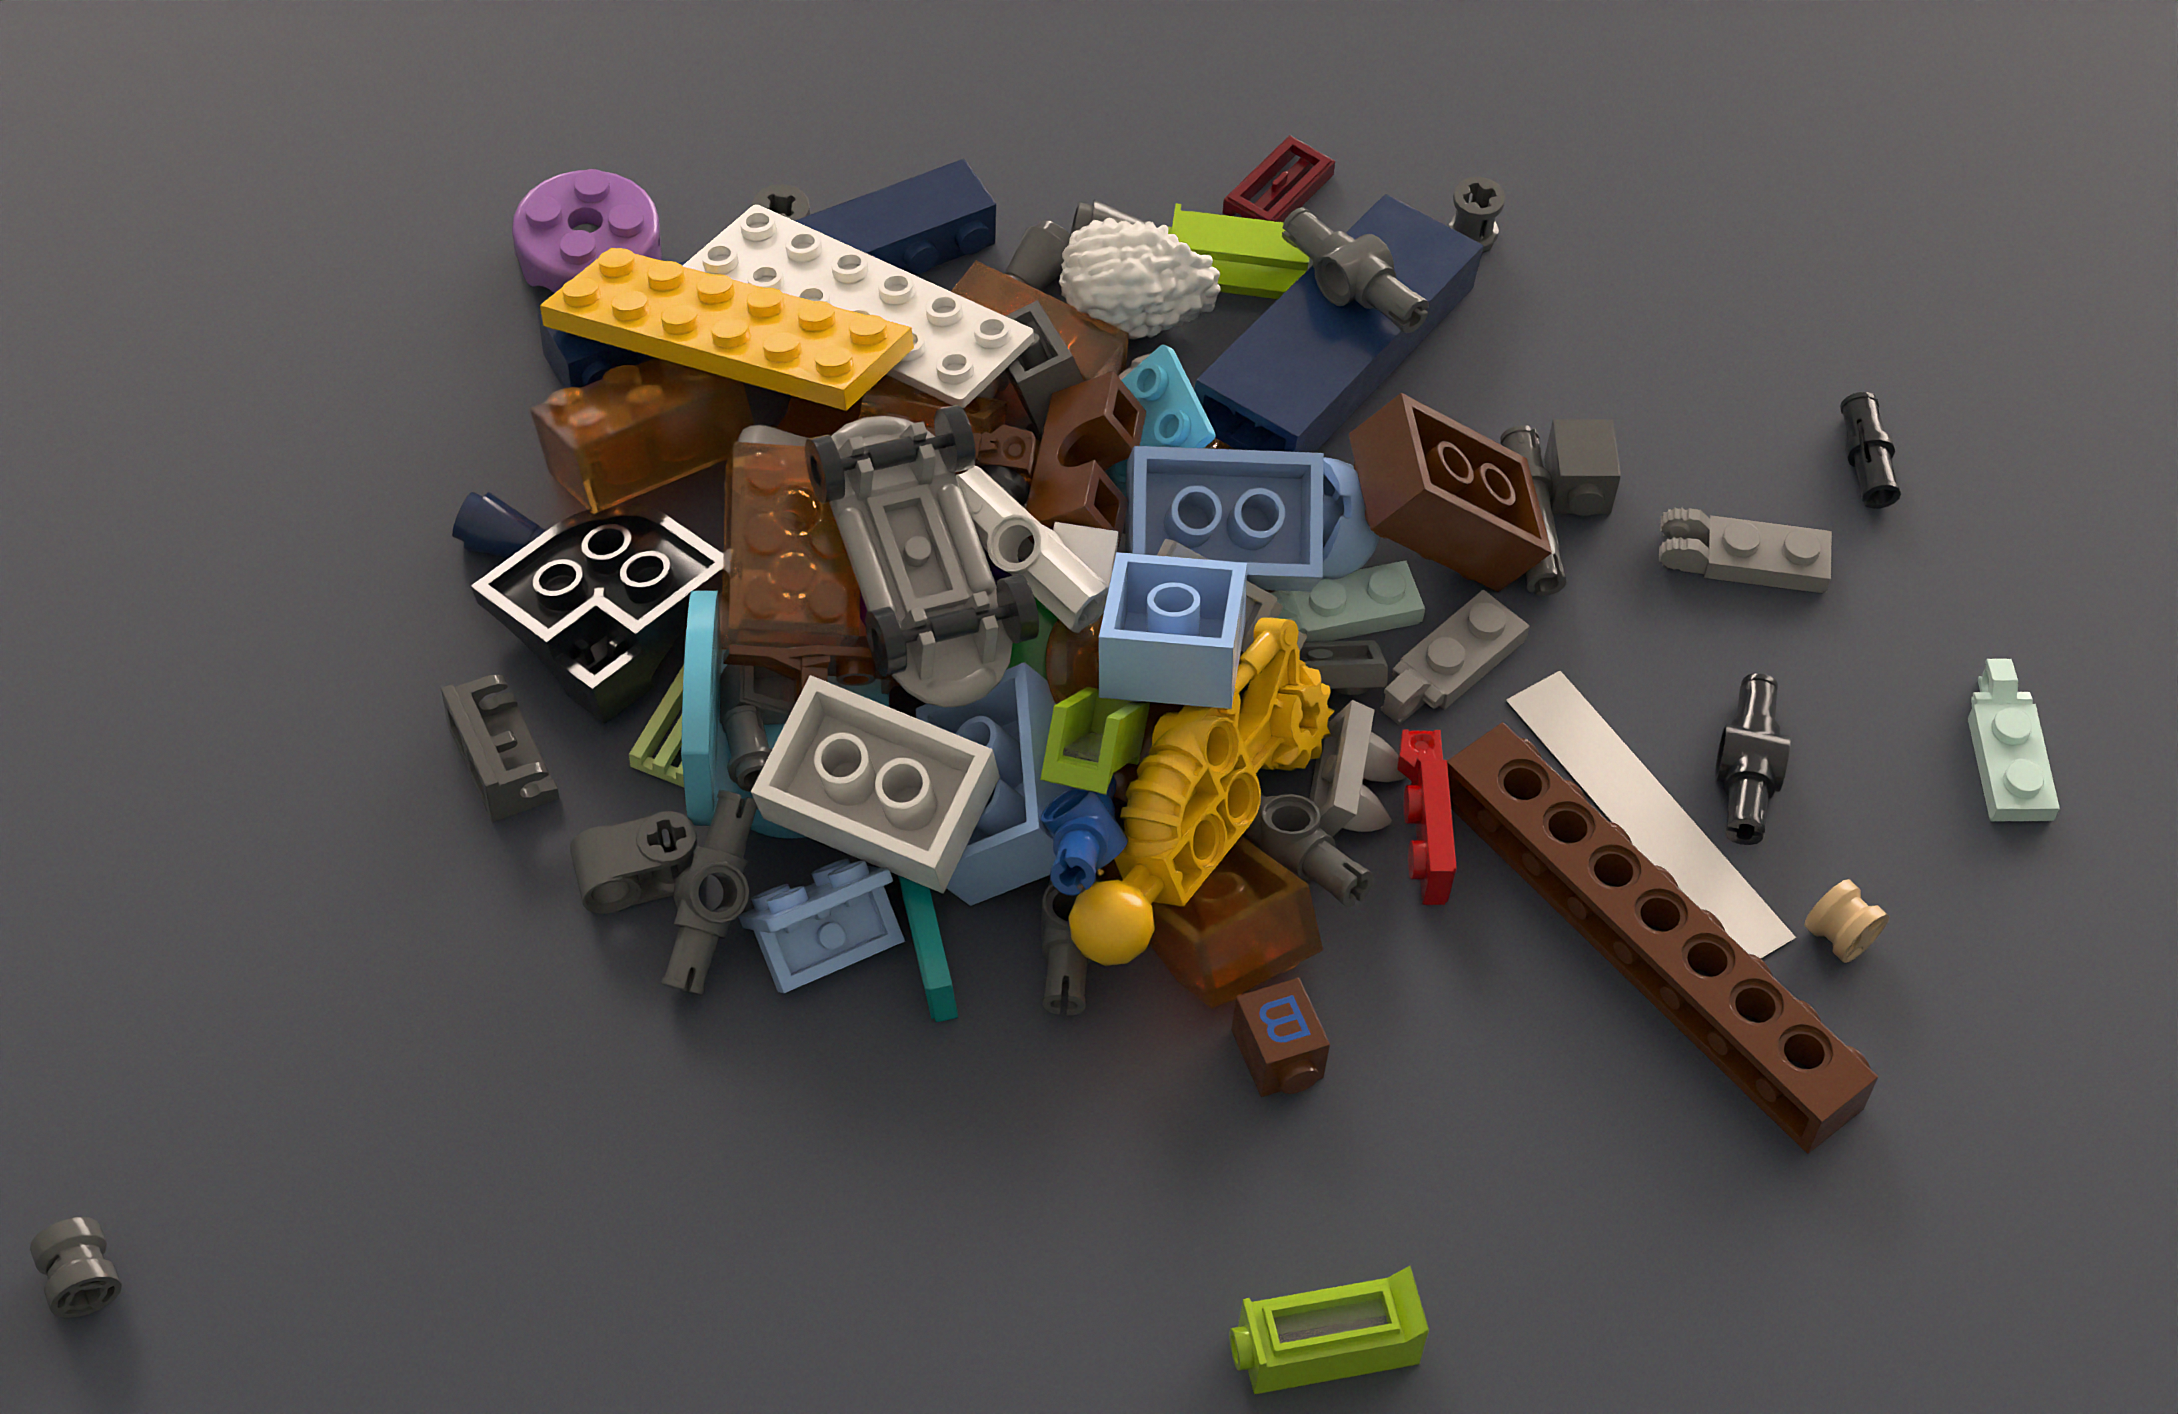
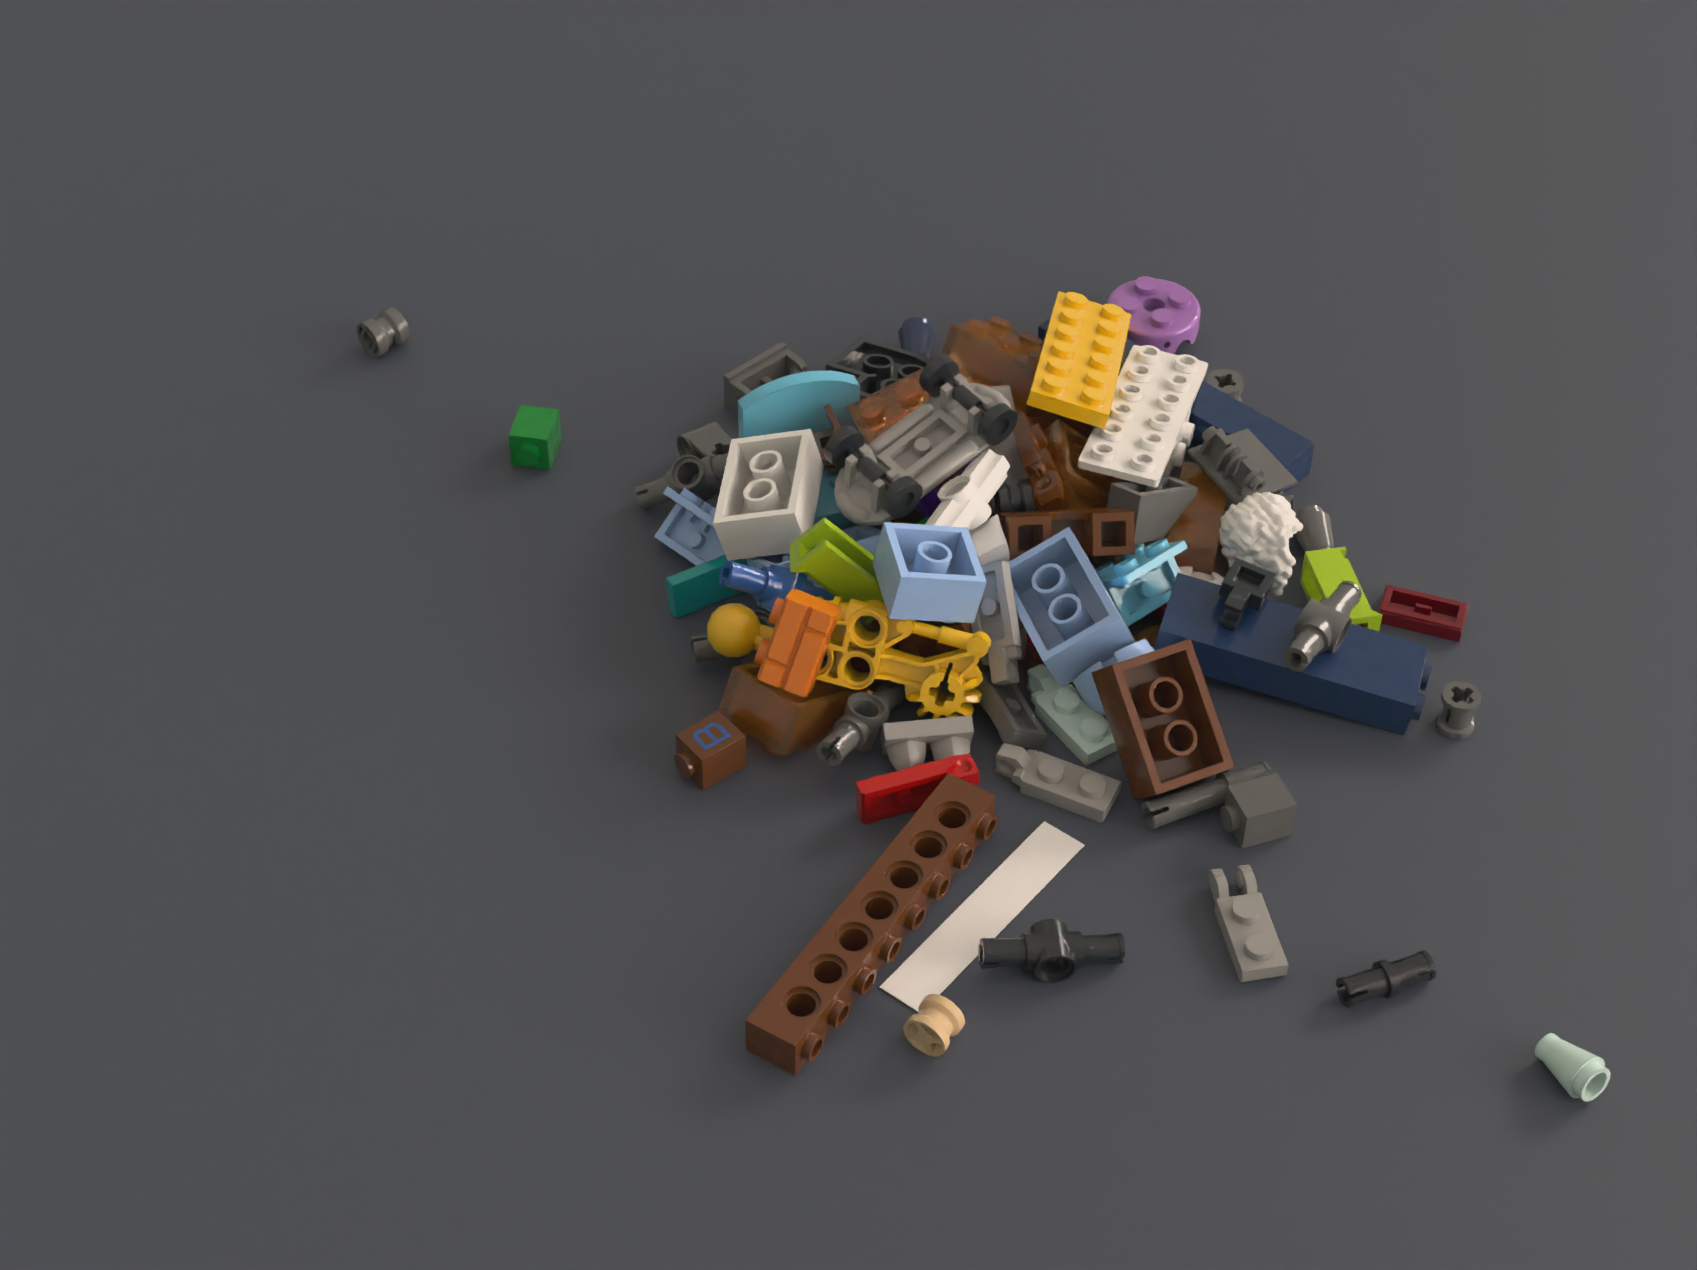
camera: 75 degrees right, 10 degrees down
(480, 1097) = (535, 437): none -> green brick
(993, 245) = (1240, 464): none -> dark grey hinge
(1214, 836) = (797, 642): none -> orange brick
(1271, 316) = (1244, 587): none -> black plate
(1330, 1333) = (508, 814): lime window -> none
(2010, 748) = (1149, 1110): light aqua hinge -> none
(2041, 334) = (1576, 1069): none -> light aqua cone

